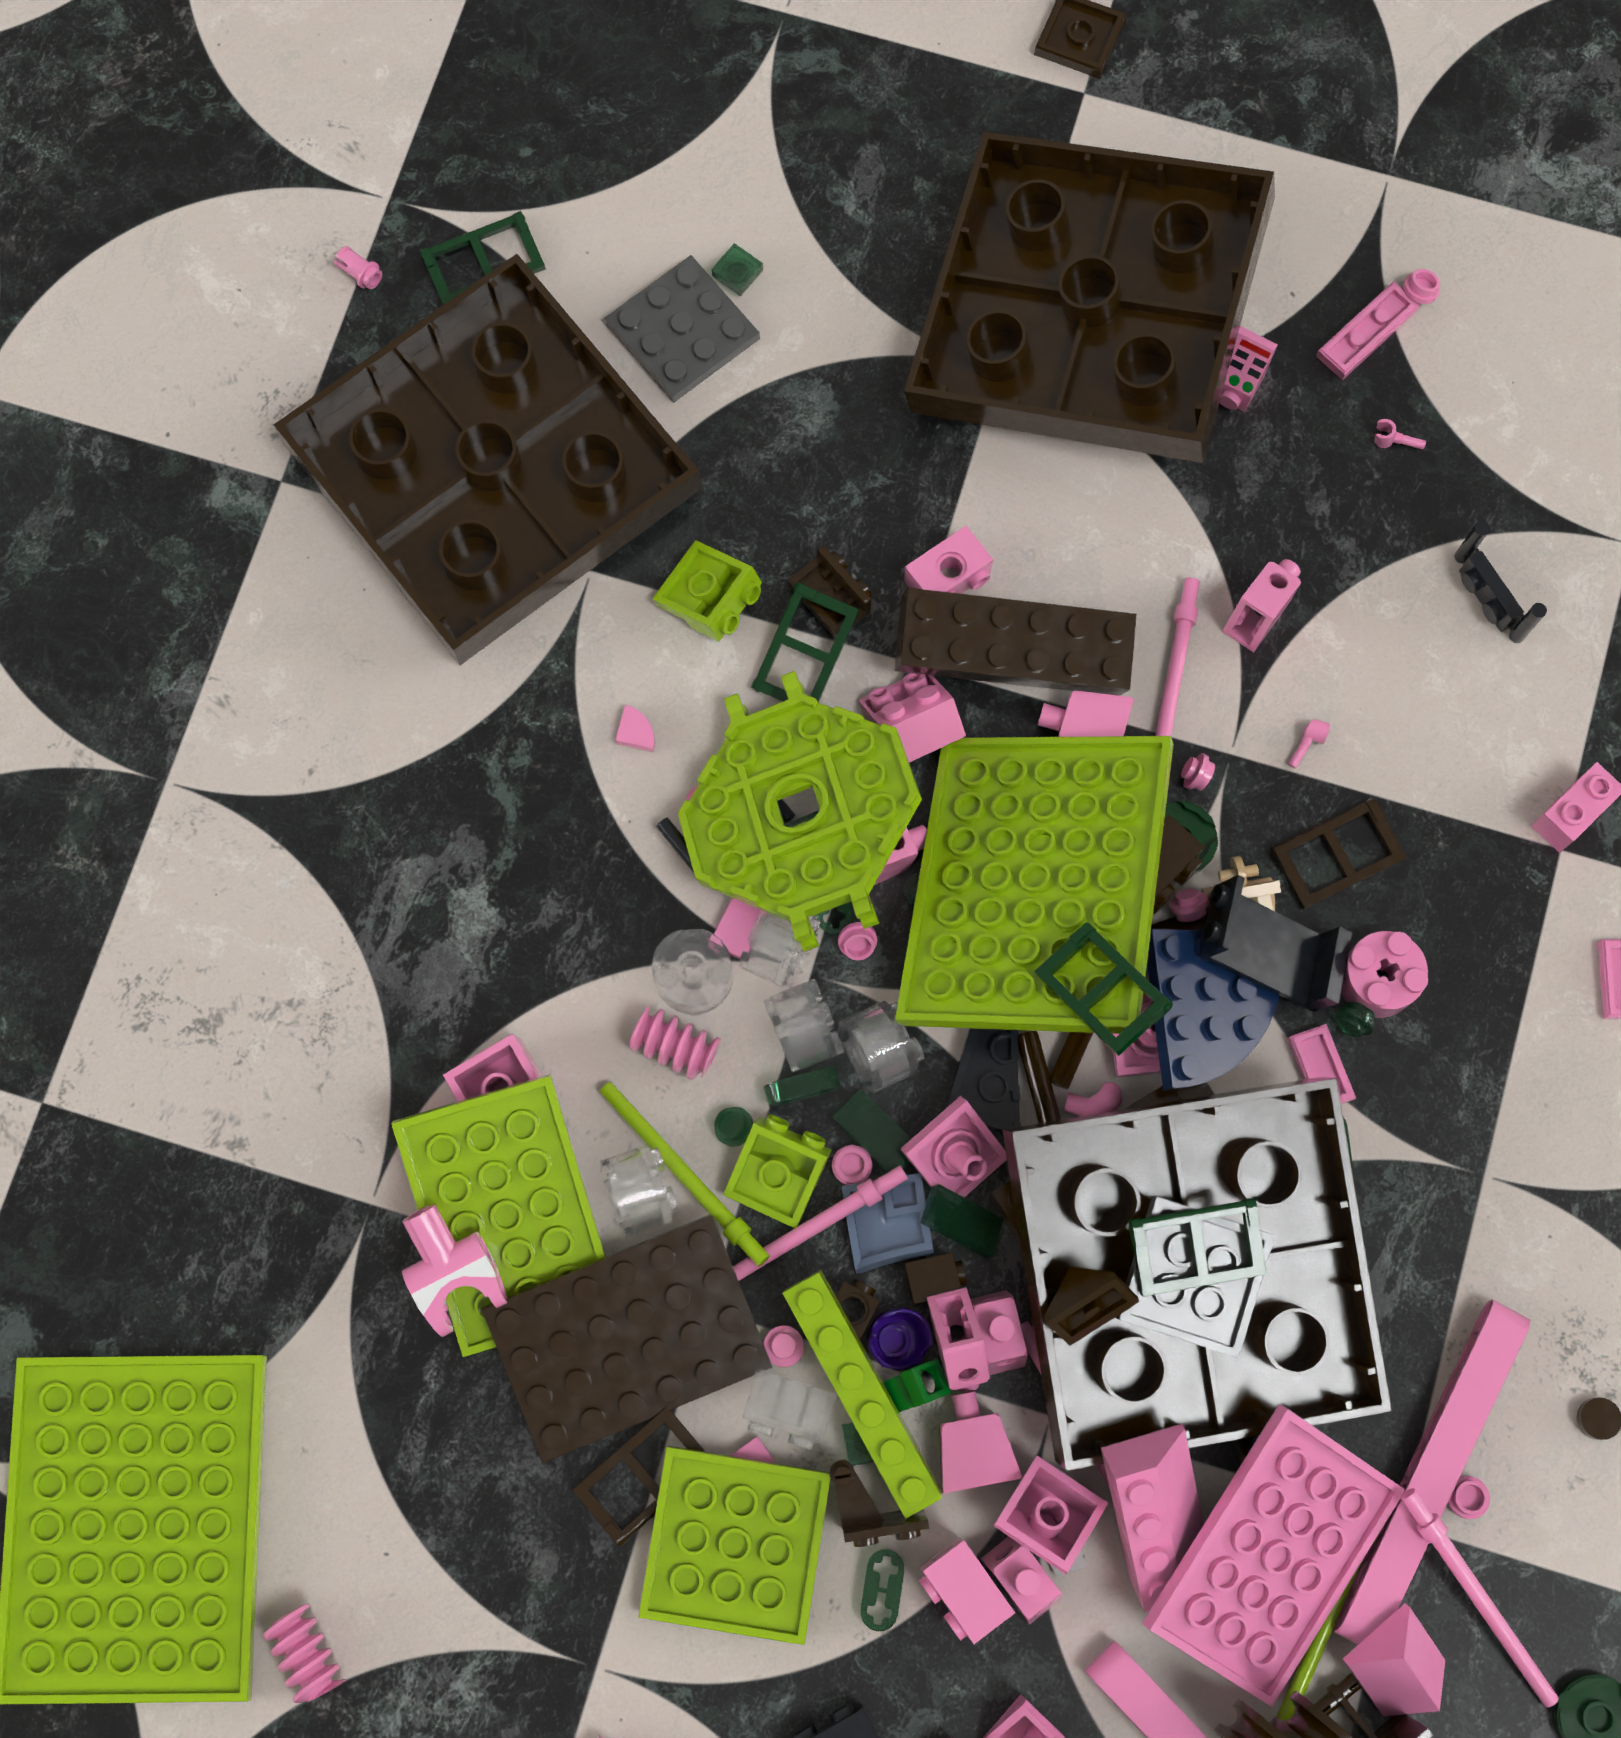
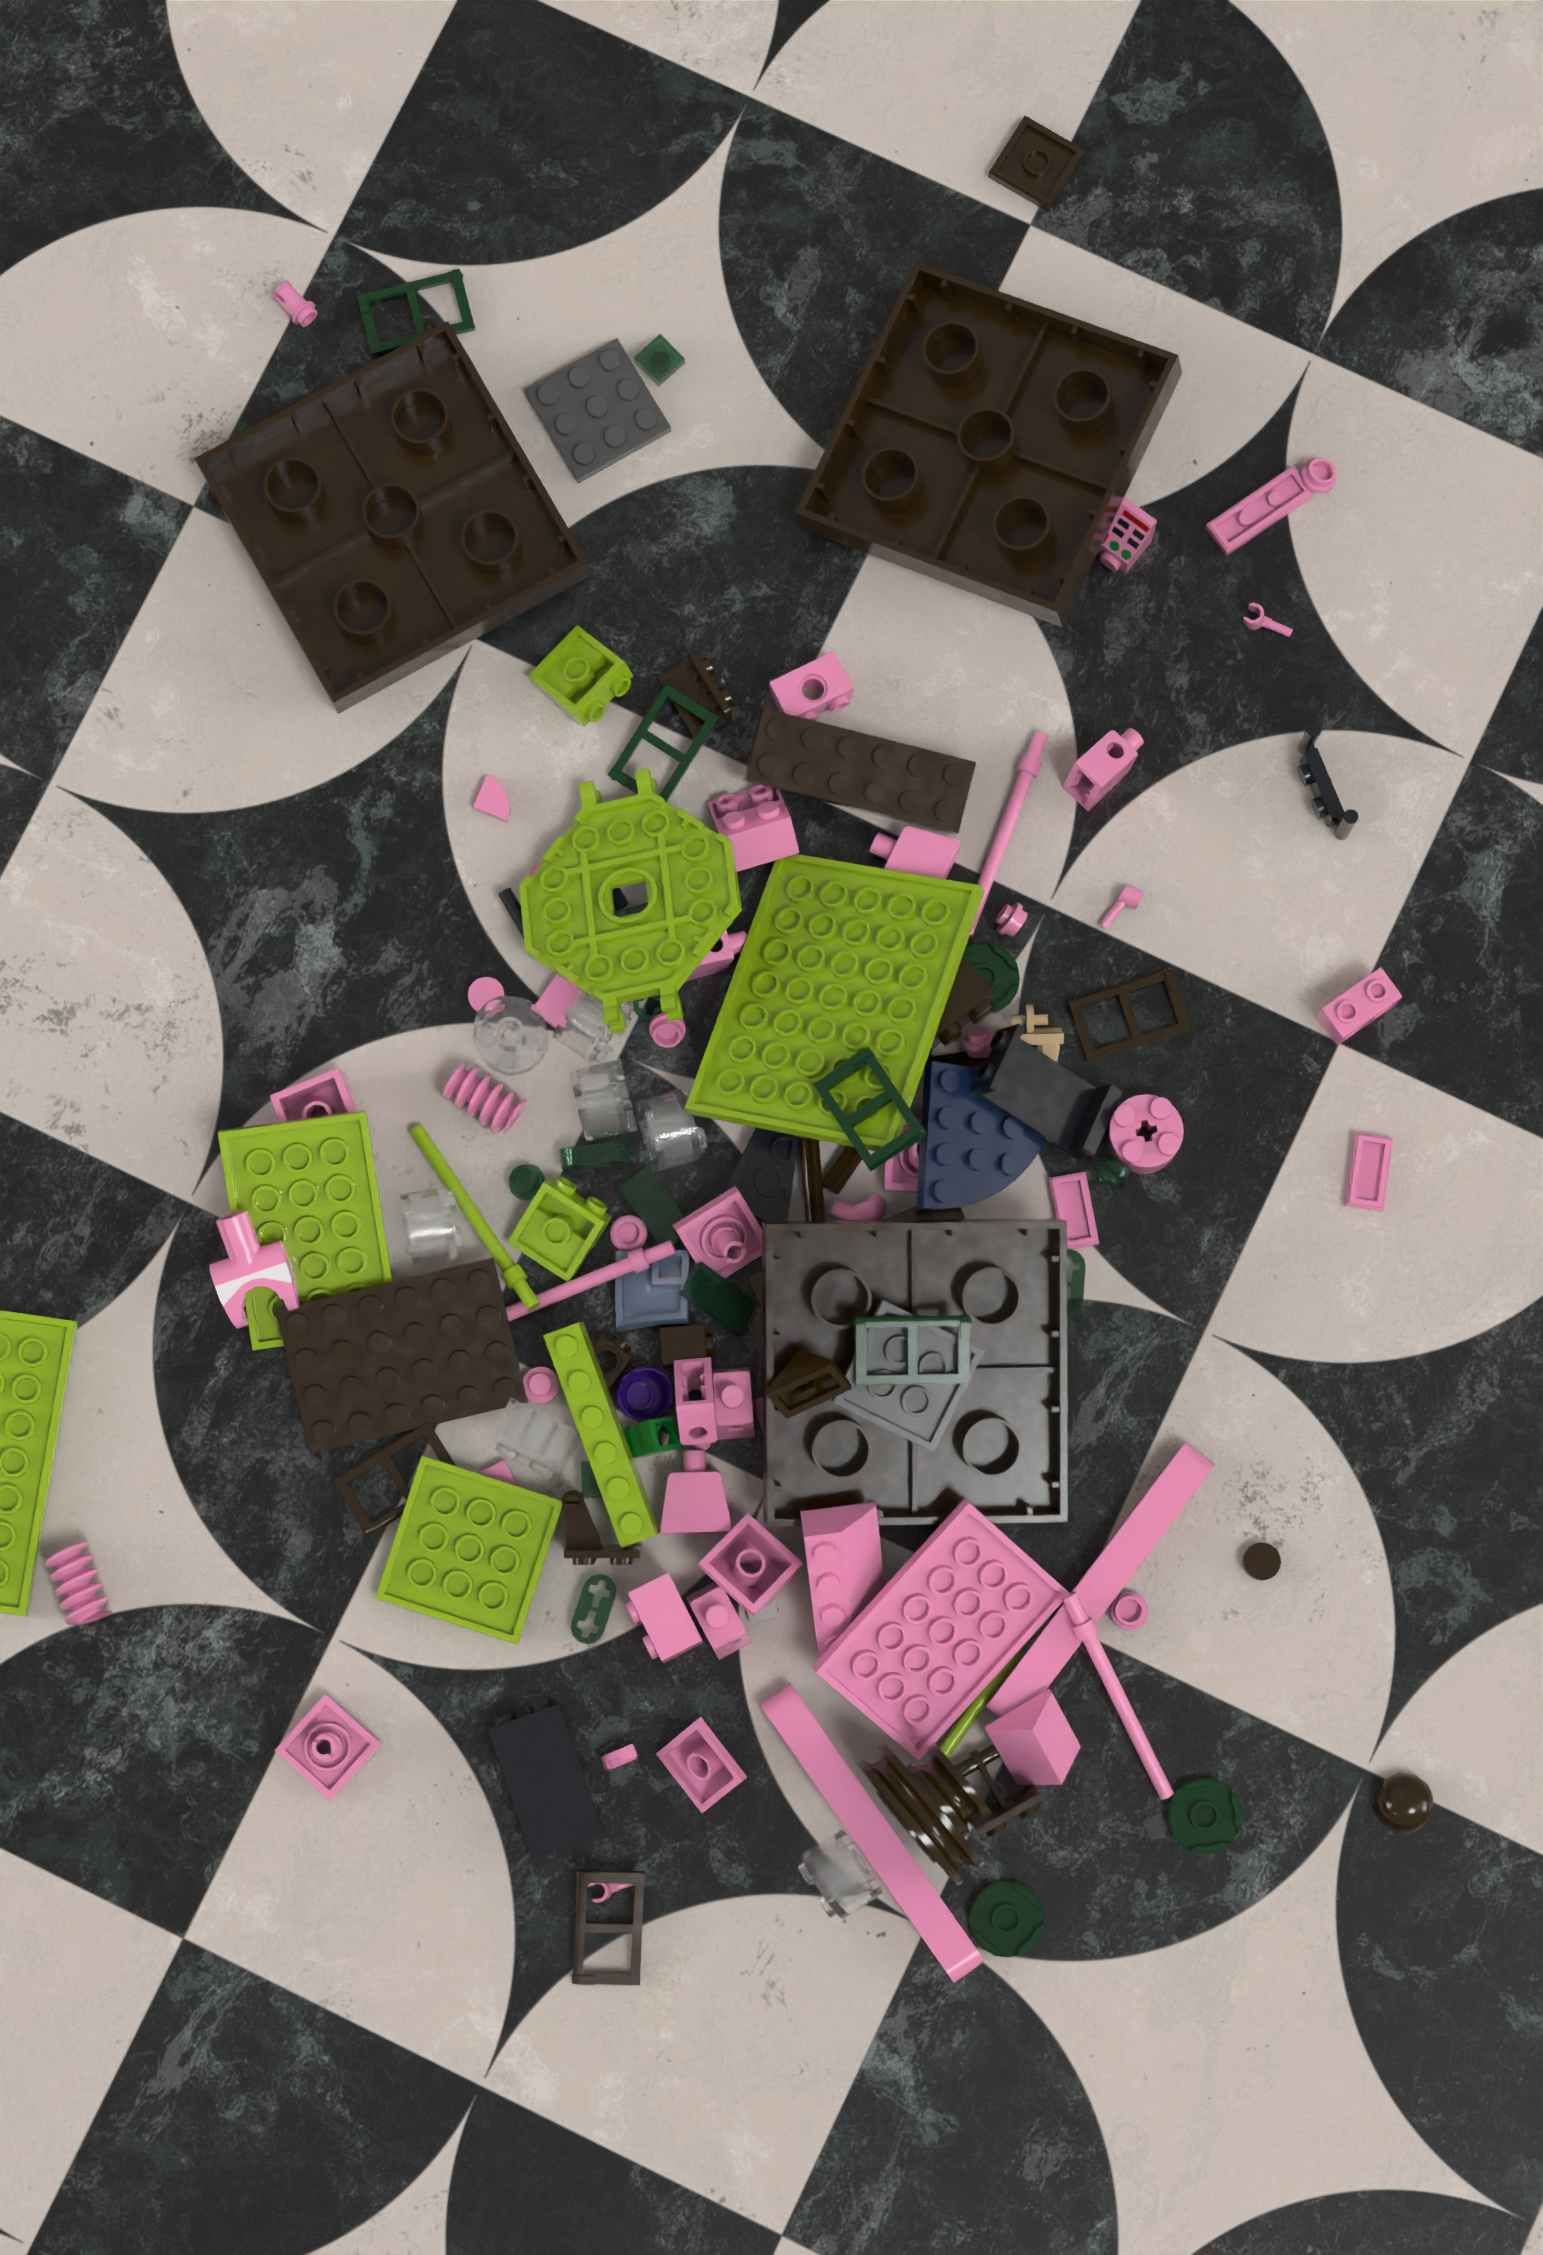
camera: 10 degrees right, 5 degrees up
(655, 930) = (483, 991): none -> bright pink tile

